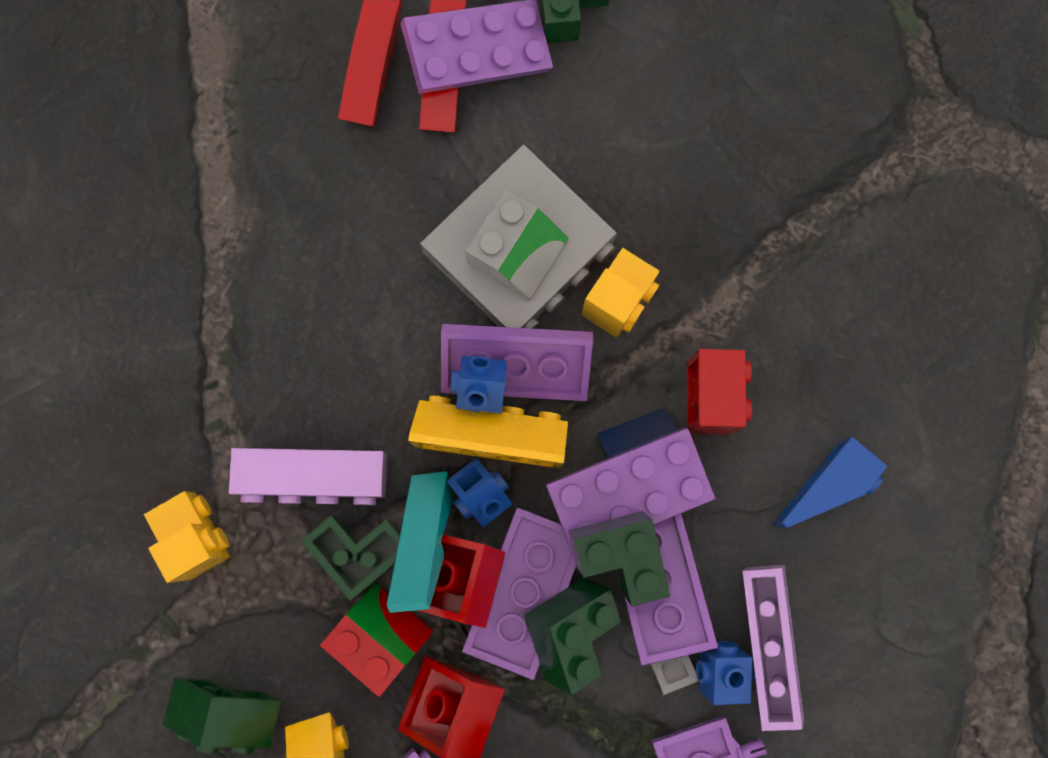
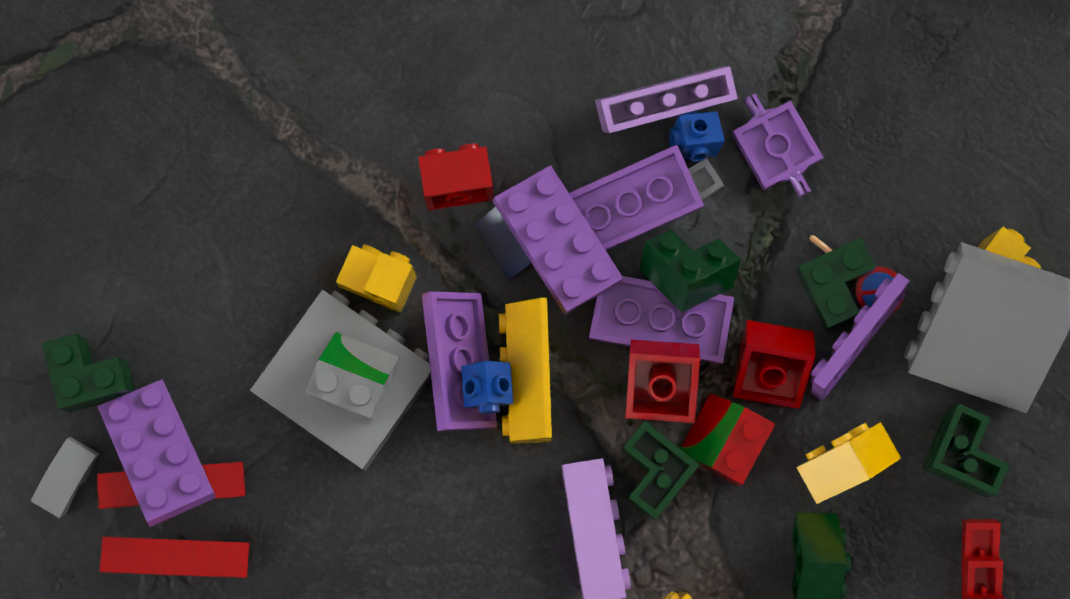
camera: 100 degrees left, 0 degrees up
(419, 545) = (636, 410): teal slope -> none
(485, 498) = (582, 372): blue brick -> none
(629, 547) = (608, 234): dark green brick -> none
(841, 477) = (513, 63): blue slope -> none

